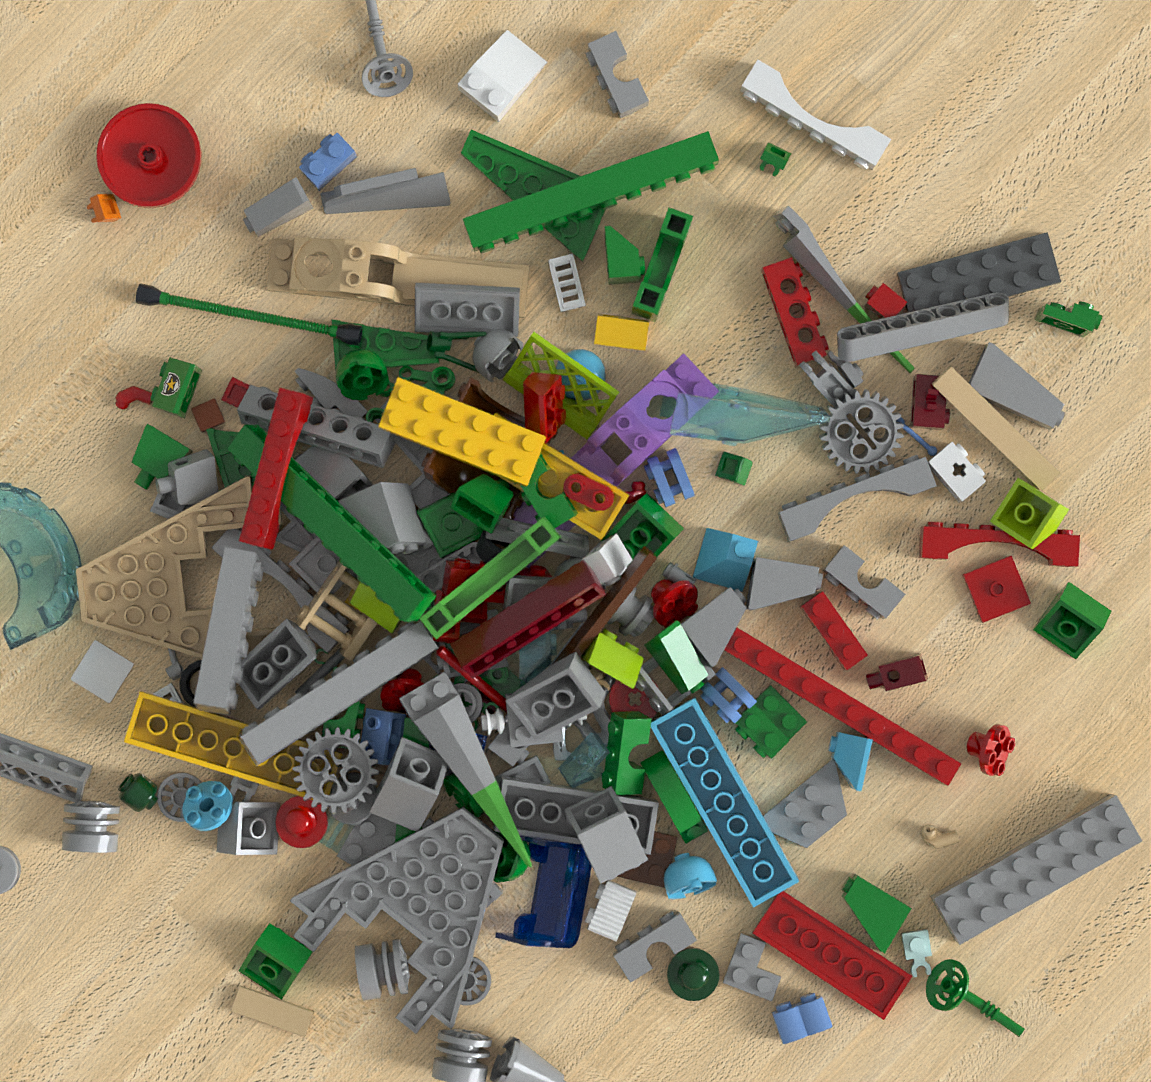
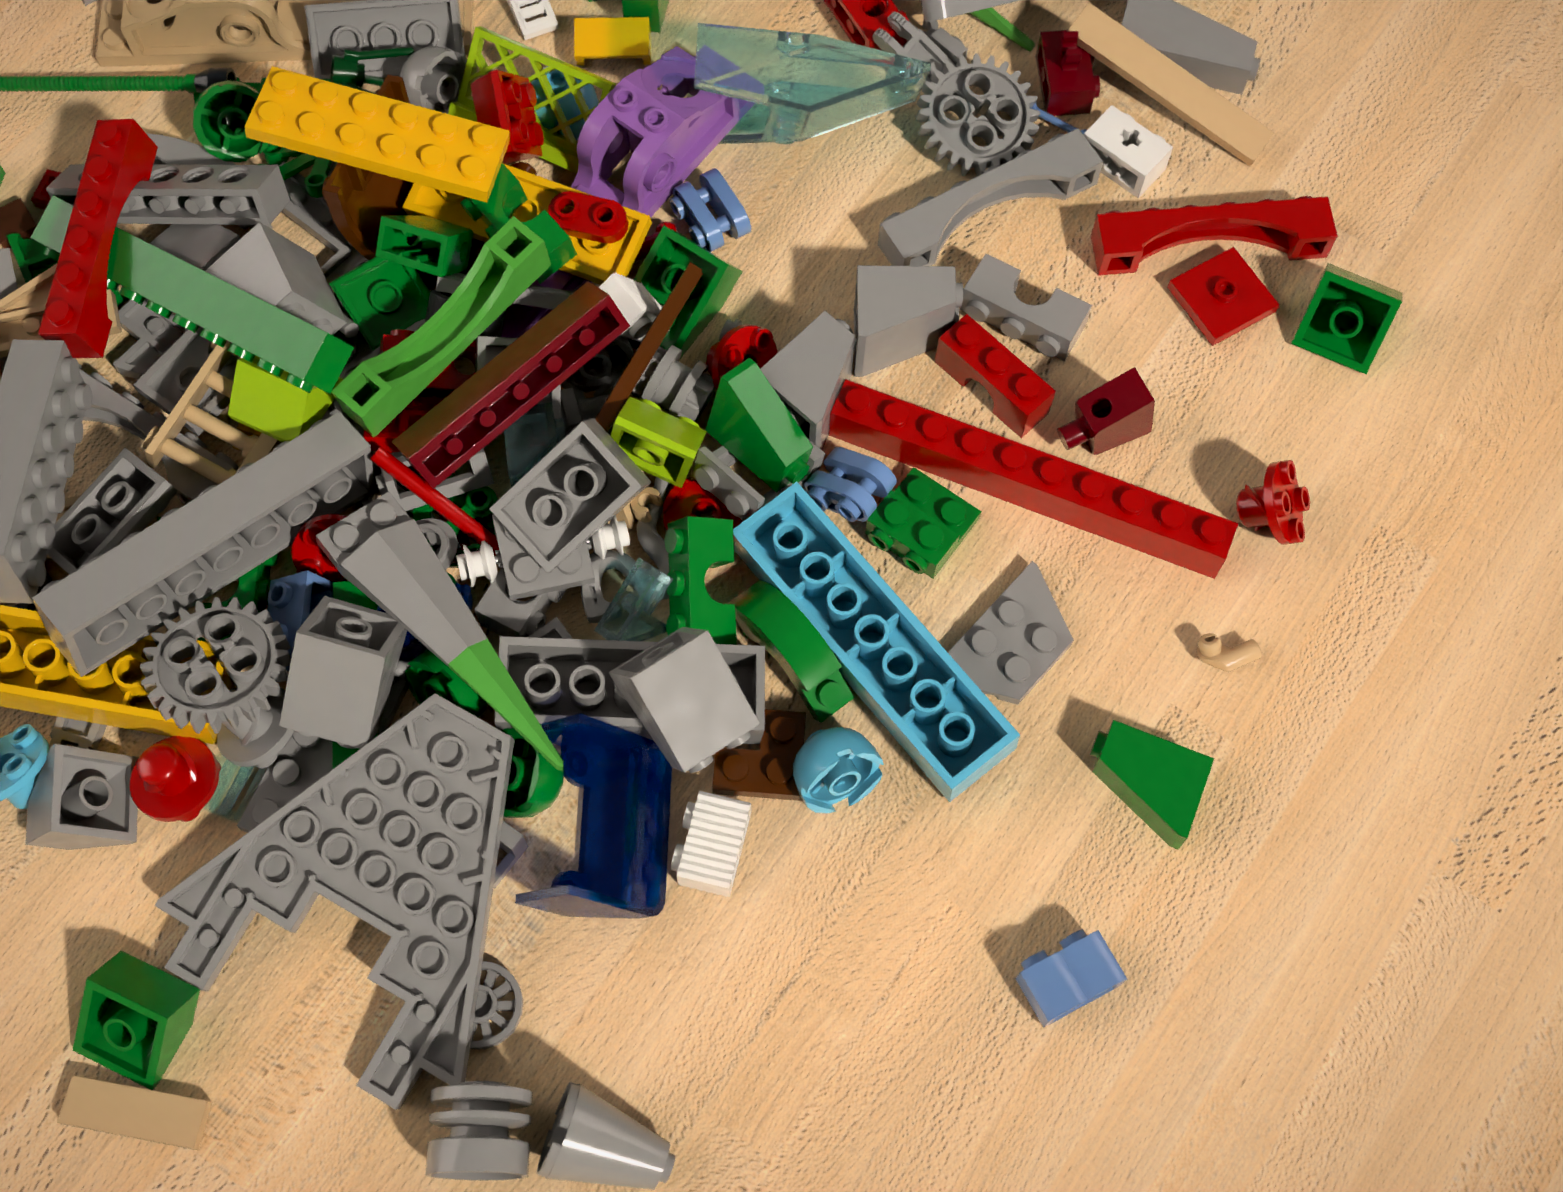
camera: 10 degrees left, 20 degrees down
(381, 969) = (311, 1000): light grey wheel -> none
(672, 931) = (822, 863): light grey arch -> none
(693, 974) = (870, 933): dark green plate -> none
(725, 559) = (808, 291): medium azure slope -> none
(734, 468) = (804, 193): green slope -> none
(745, 974) = (955, 917): light grey plate -> none
(832, 954) = (1100, 863): red plate -> none
(851, 757) = (1062, 544): medium azure slope -> none
(917, 947) = (1237, 832): light aqua plate -> none
(960, 988) = (1322, 892): green dish -> none
(1028, 514) = (1248, 171): lime slope -> none
(1036, 868) = (1393, 675): light grey brick -> none

